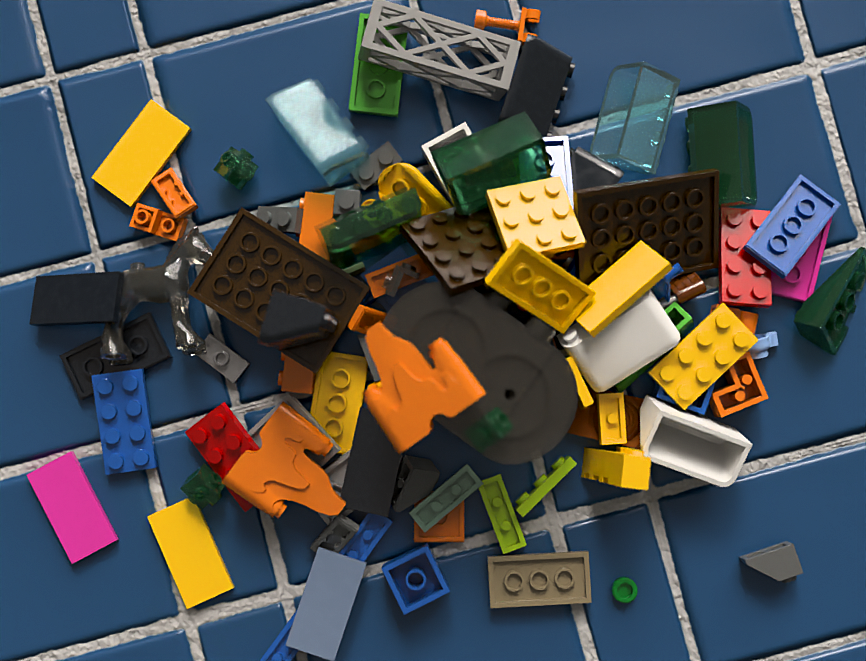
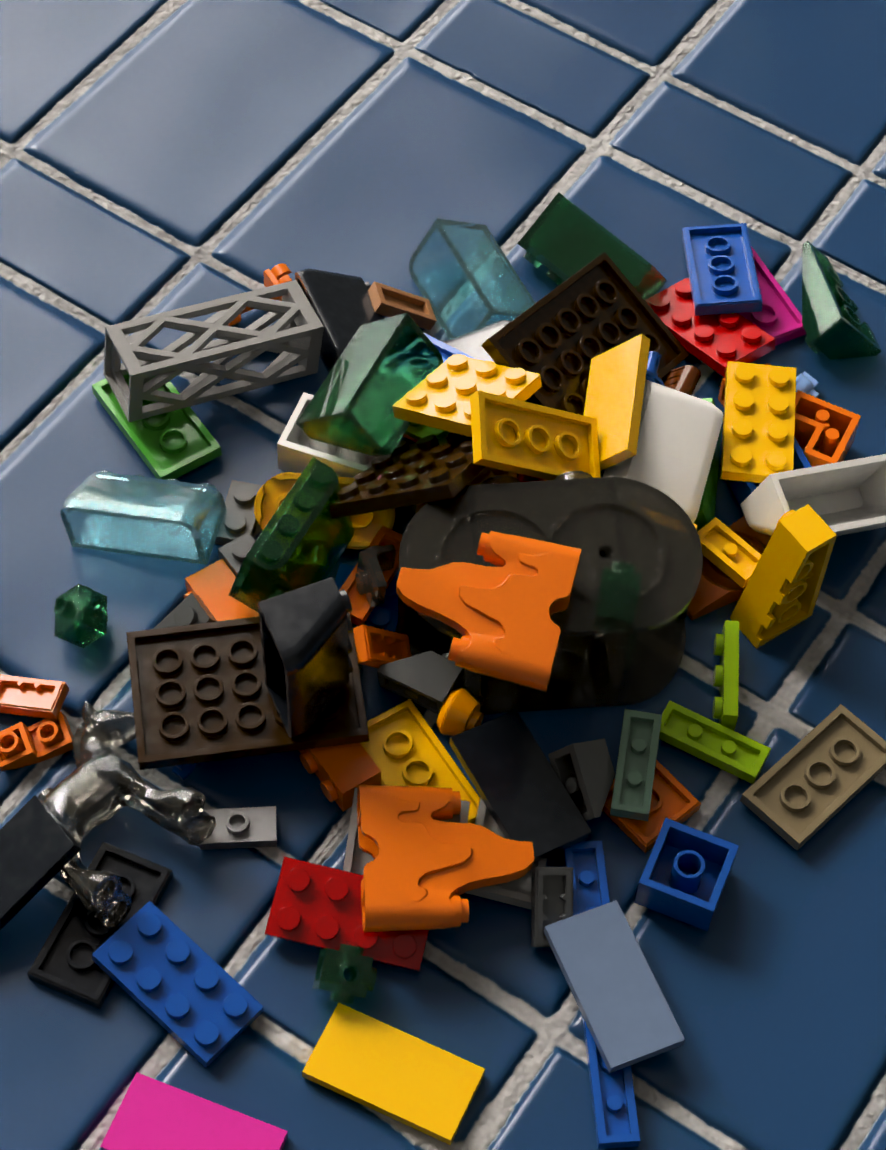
camera: 45 degrees left, 30 degrees down
(579, 99) = (392, 302): none -> medium nougat tile

